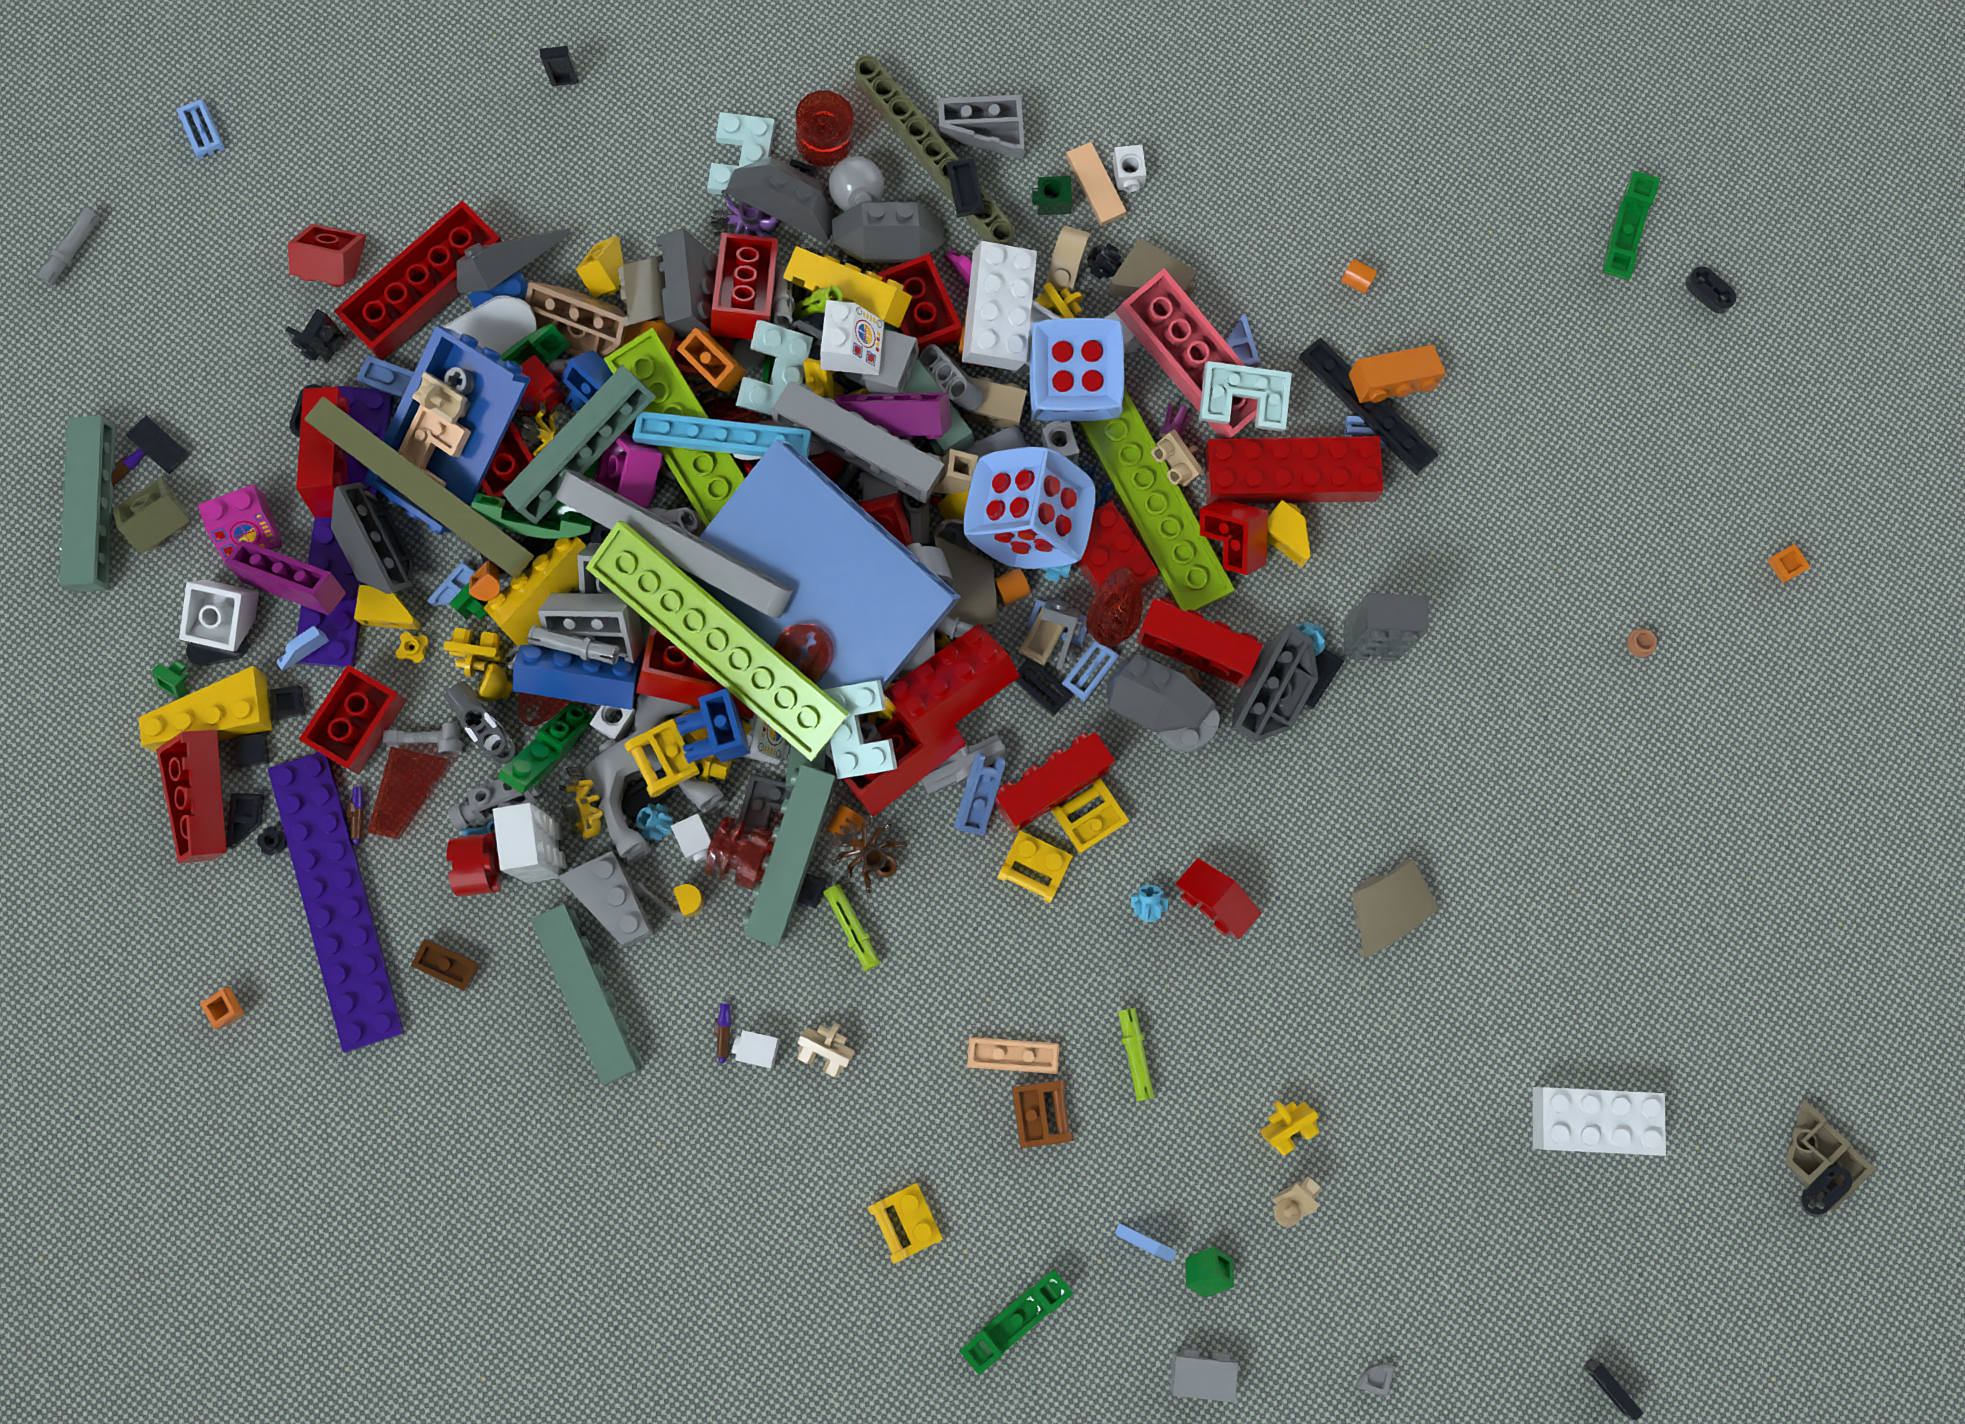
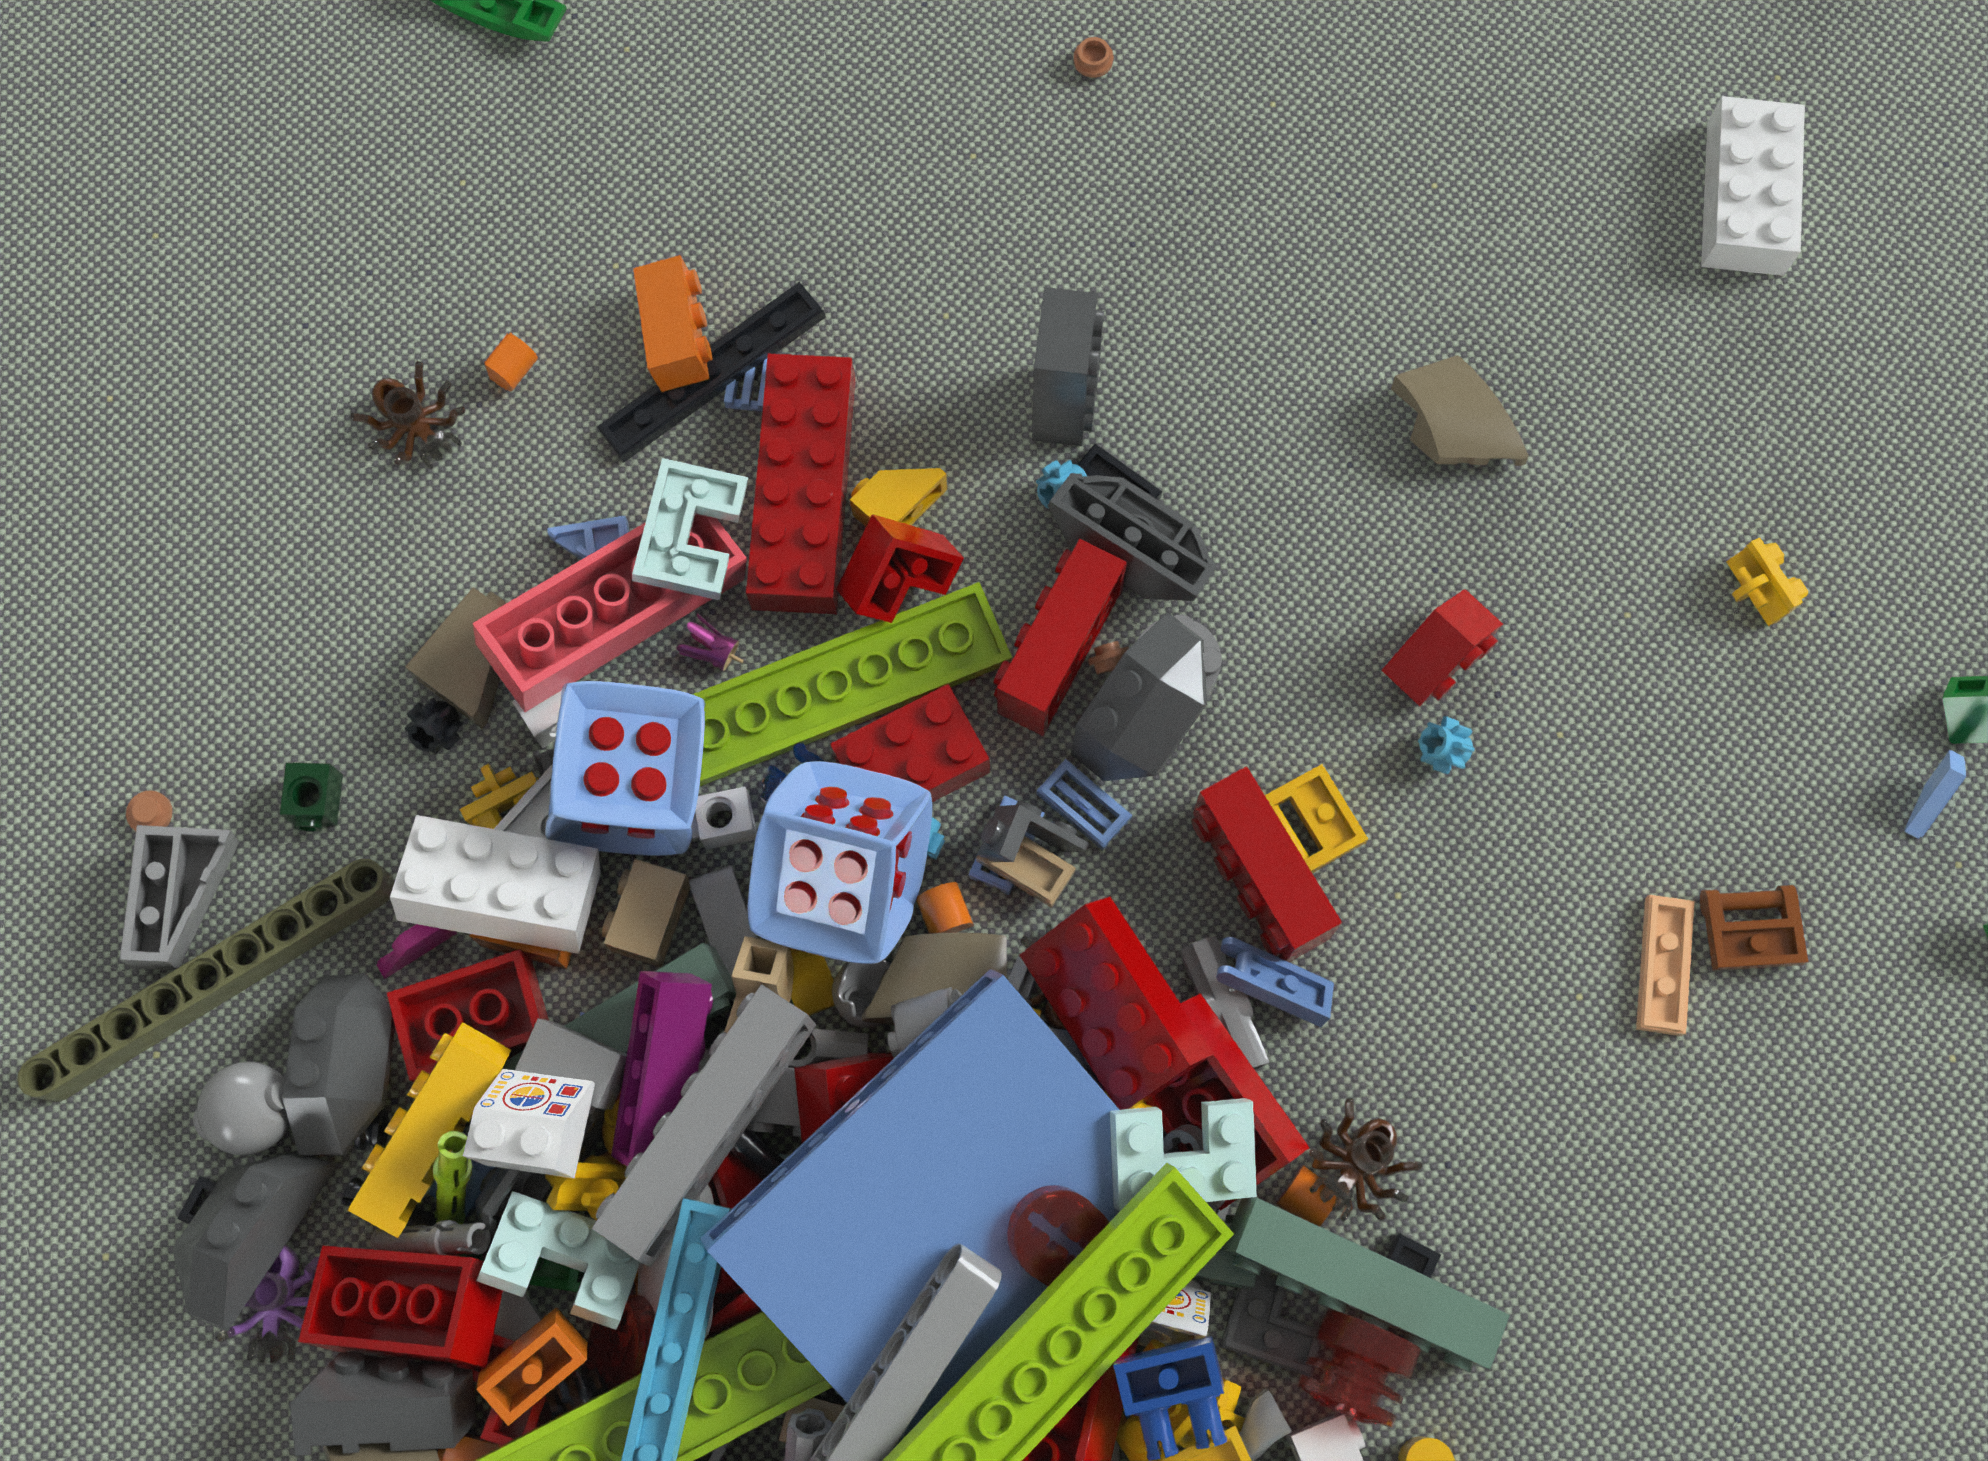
camera: 80 degrees left, 5 degrees down
(722, 1031) = (1631, 1416): piece -> none
(751, 133) = (132, 1276): light aqua plate -> none
(756, 1049) = (1663, 1361): white brick -> none
(824, 128) = (112, 1149): clear red wheel -> none
(827, 1044) = (1657, 1249): tan hips -> none
(836, 898) = (1520, 1176): lime pin -> none
(915, 1218) = (1910, 1129): yellow plate -> none
(951, 378) = (613, 962): light grey beam -> none
(965, 187) = (280, 928): black tile -> none
(1035, 104) = (149, 809): none -> nougat plate
(1038, 857) = (1369, 903): yellow plate -> none
(1060, 703) = (1132, 852): black tile -> none
(1067, 258) = (422, 780): tan brick -> none
(1096, 184) = (299, 730): light nougat tile -> none
(1124, 596) = (1001, 751): clear red piece -> none
(1132, 158) = (269, 666): white brick -> none
(1136, 1055) = (1648, 787): lime pin -> none
(1178, 459) = (767, 643): tan hips -> none
(1296, 1202) = (1877, 579): tan hips -> none
(1314, 219) = (407, 415): none -> animal

